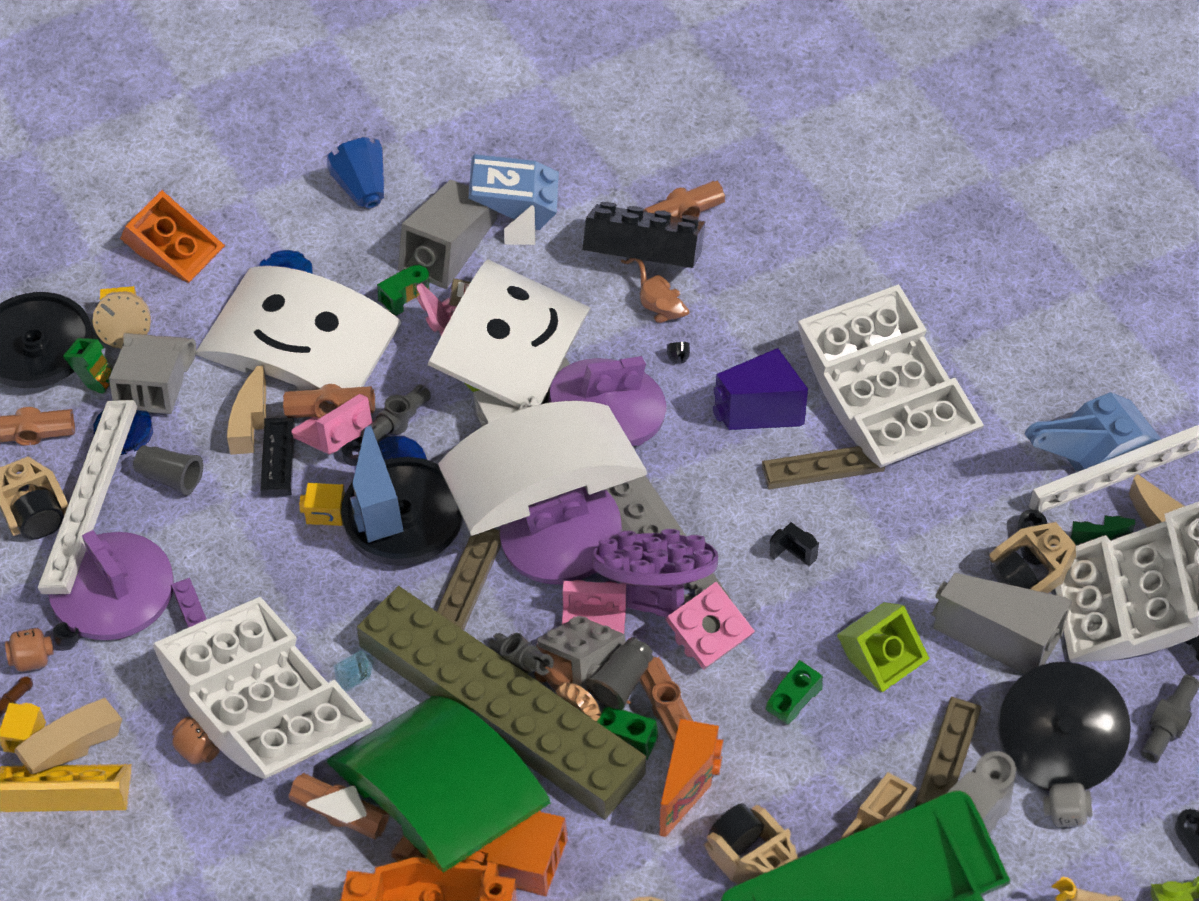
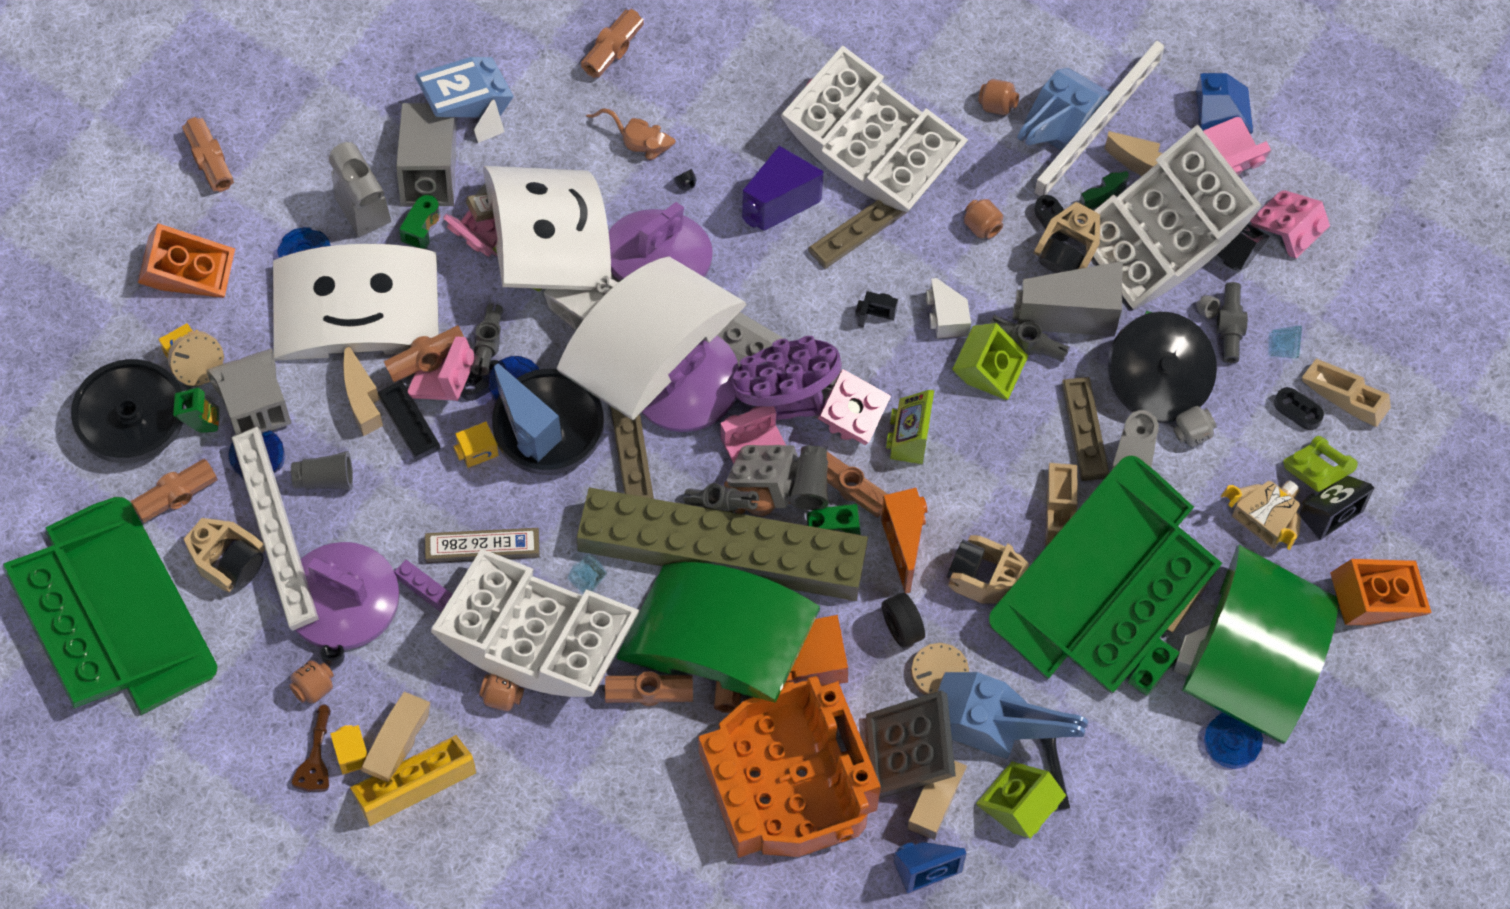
camera: 30 degrees left, 10 degrees up
(253, 158) = (208, 154): none -> nougat piece
(286, 603) = (467, 544): none -> tile
(342, 805) = (655, 687): white sticker -> none
(359, 170) = (315, 128): blue cone -> none
(359, 233) = (357, 190): none -> light grey piece
(580, 699) = (788, 514): light nougat gear -> none
(634, 857) = (903, 619): none -> black tyre
(644, 234) = (601, 86): black brick -> none
(759, 673) = (911, 427): none -> lime slope
(794, 692) = (945, 431): green leg -> none
(868, 580) = (949, 310): none -> white slope
(945, 650) = (1039, 345): none -> dark grey pin
(957, 506) = (983, 218): none -> nougat head
(1040, 399) = (998, 97): none -> nougat head
(1160, 689) = (1205, 302): none -> light grey hinge

